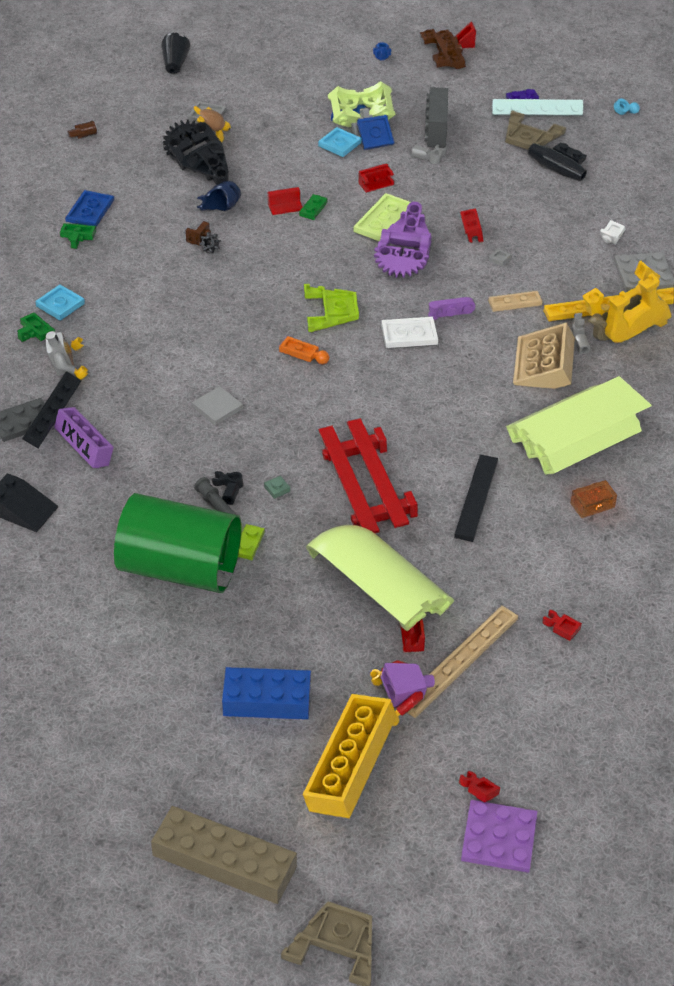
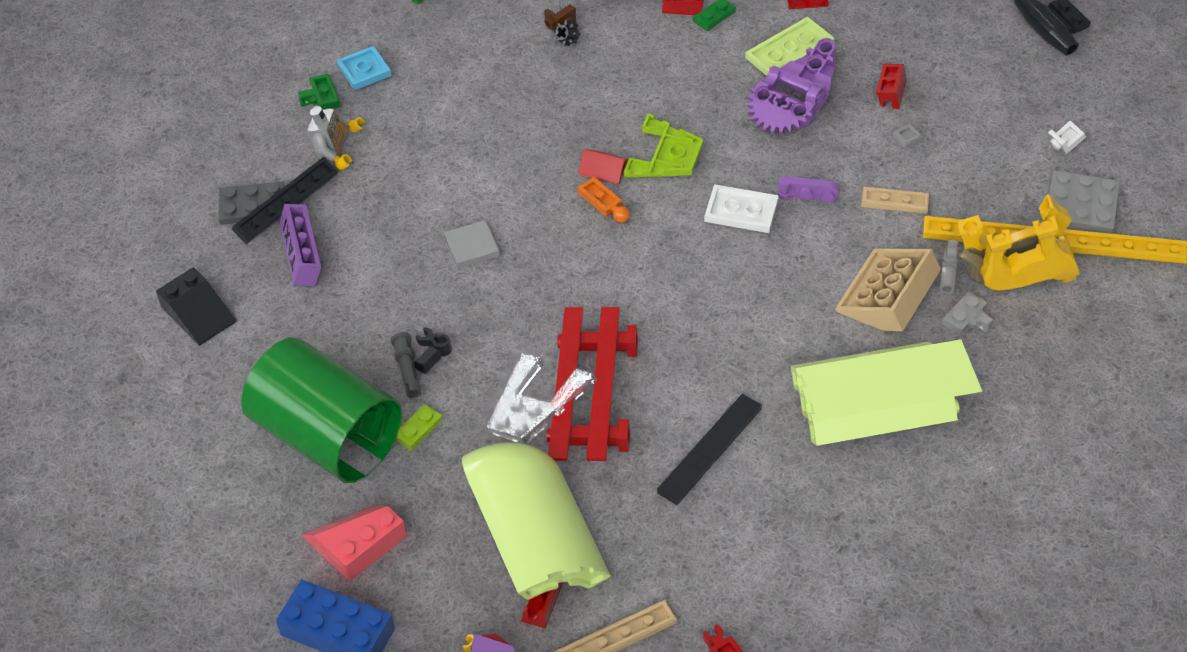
camera: 25 degrees right, 5 degrees up
(247, 630) = (358, 539): none -> coral wedge
(277, 487) = (485, 366): sand green plate -> none
(289, 327) = (602, 166): none -> panel
(330, 511) = (524, 417): none -> clear wing
(593, 499) = (849, 493): clear orange brick -> none
(607, 362) = (968, 313): none -> light grey hinge

